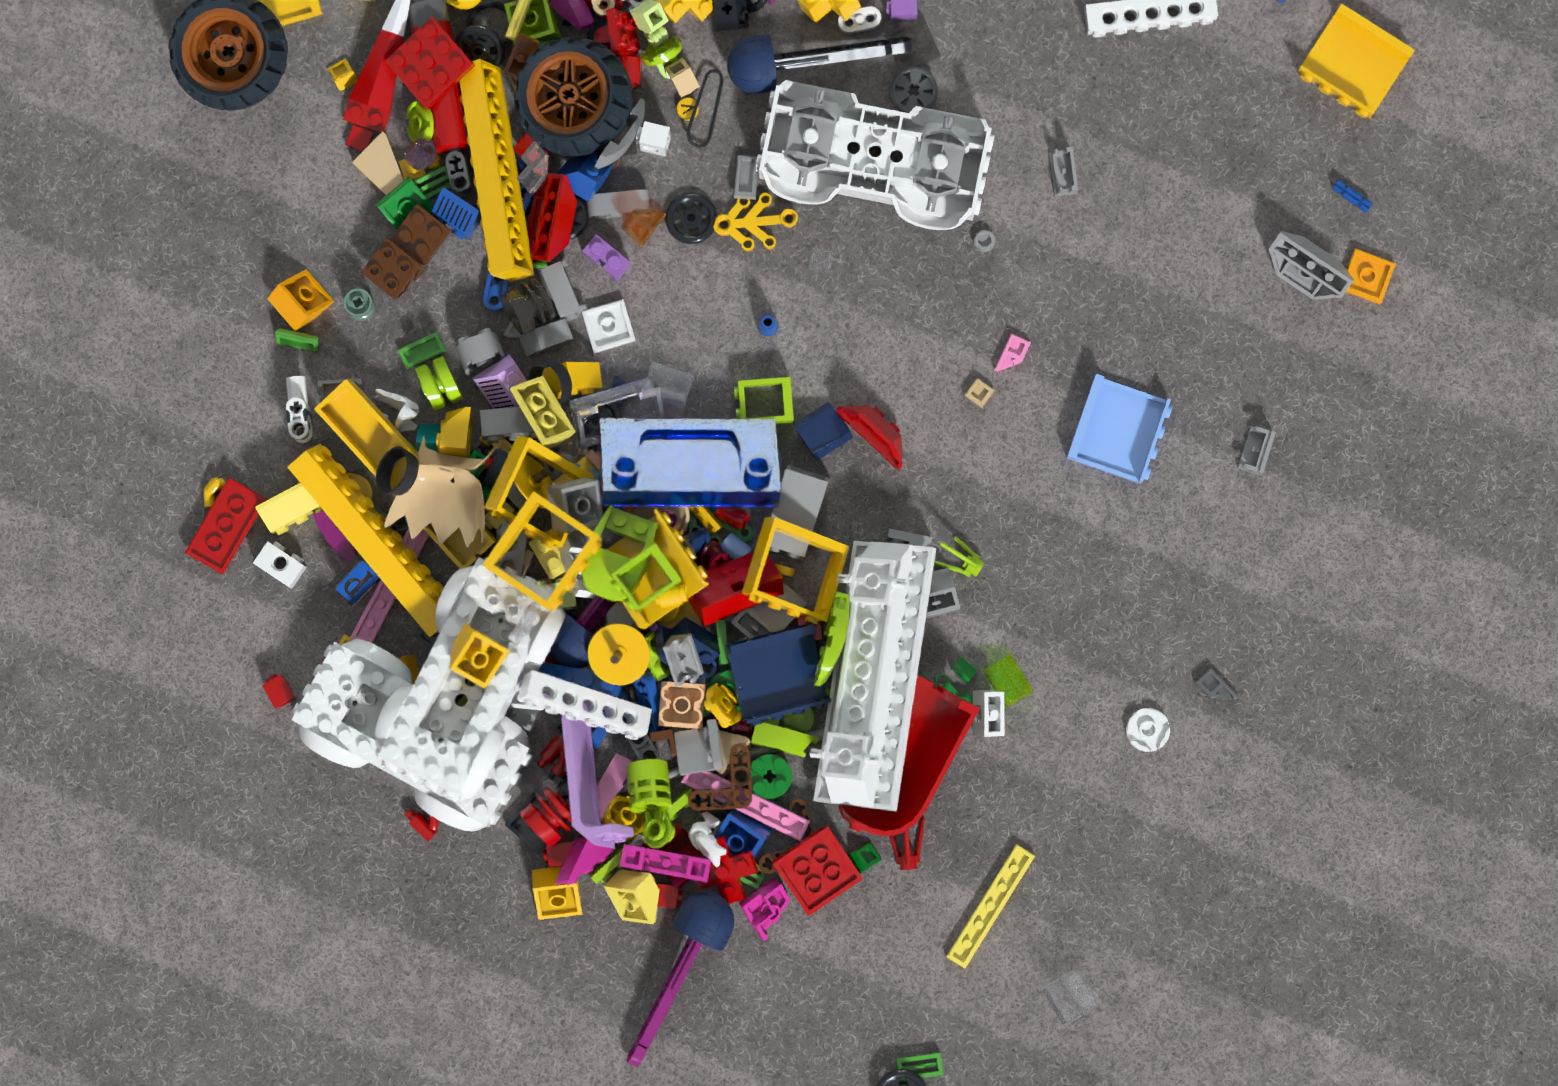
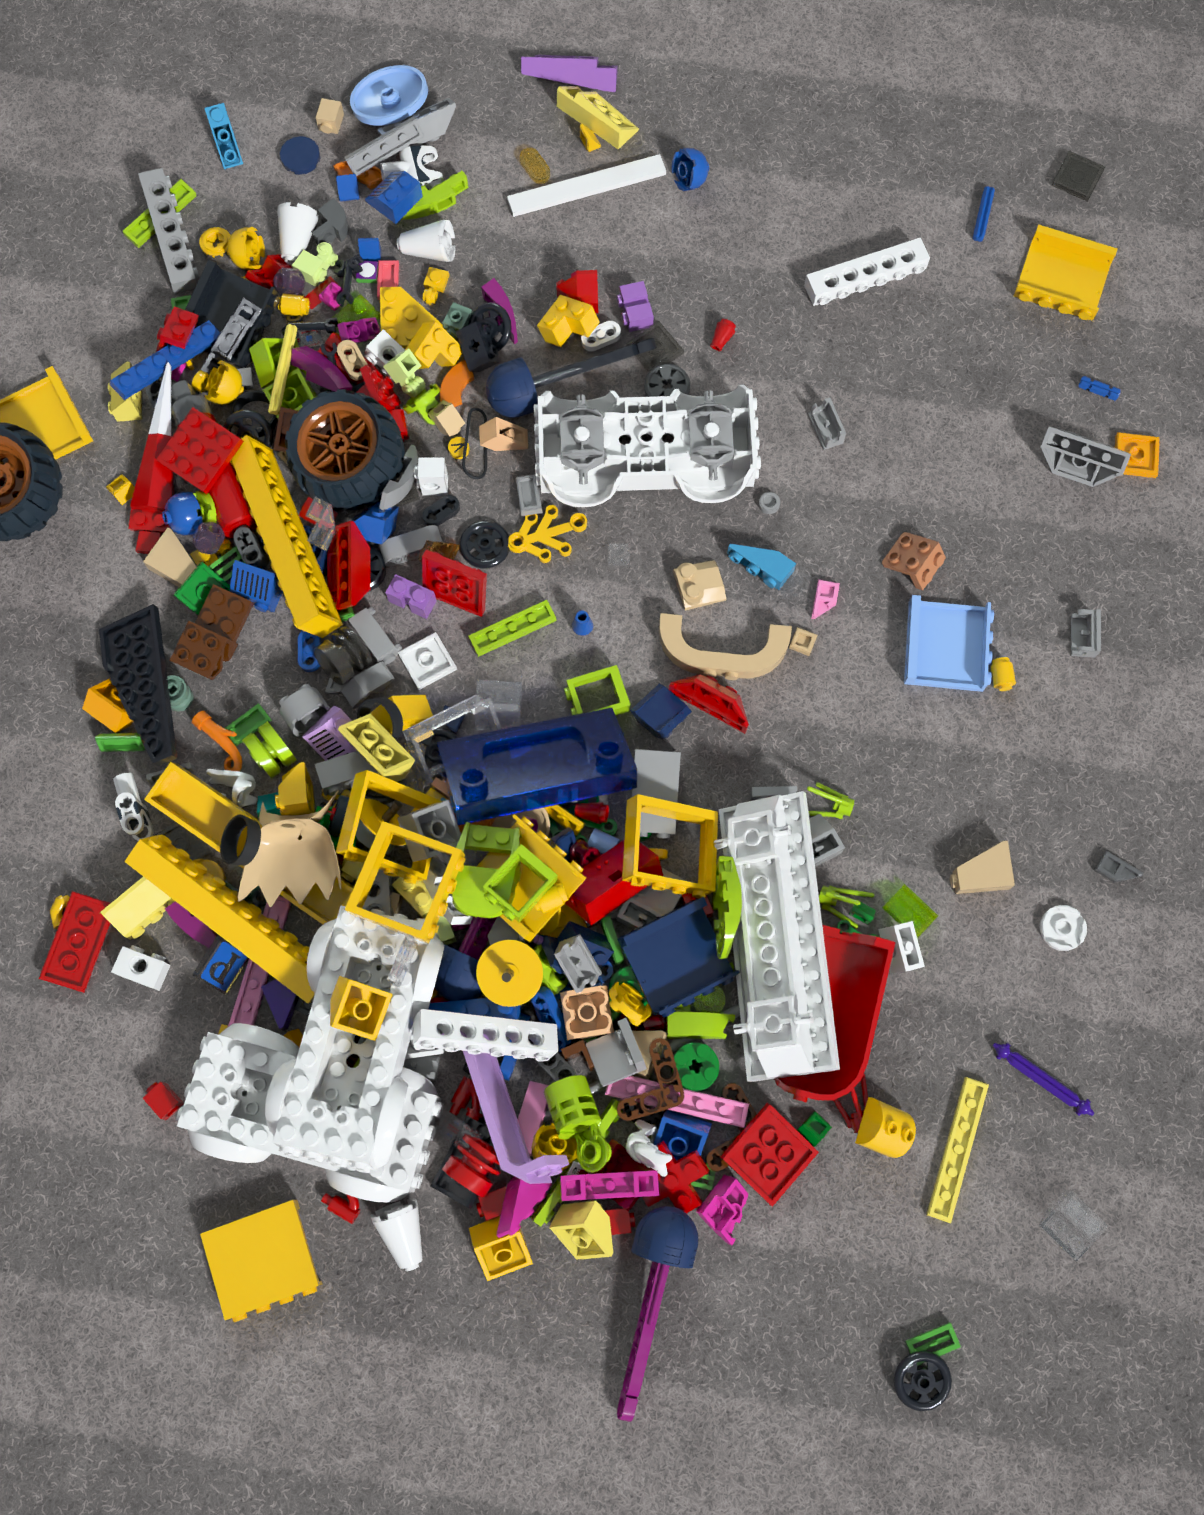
camera: 15 degrees left, 10 degrees down
(328, 270) = (137, 668): none -> black wing
(341, 854) = (260, 1261): none -> yellow panel
(394, 355) = (204, 722): none -> orange plant
(399, 121) = (182, 513): none -> blue cylinder
(403, 627) = (281, 1002): none -> dark purple slope
(470, 859) = (401, 1232): none -> white cone
(651, 258) = (454, 582): none -> red plate
(654, 168) = (441, 511): none -> black beam
(698, 38) = (455, 382): none -> orange tile
(698, 313) = (512, 628): none -> lime plate
(735, 108) = (503, 435): none -> light nougat slope
(886, 396) = (722, 664): none -> tan arch
(893, 310) = (699, 584): none -> tan slope
(928, 872) = (886, 1129): none -> yellow brick
(936, 648) = (830, 895): none -> lime plant
(965, 307) = (767, 564): none -> dark azure slope
(985, 46) = (724, 331): none -> red cone
(1086, 862) = (1043, 1079): none -> dark purple wheel
(1088, 660) = (985, 872): none -> tan slope
(1111, 334) = (916, 558): none -> nougat bracket
(1163, 472) = (1002, 674): none -> yellow brick

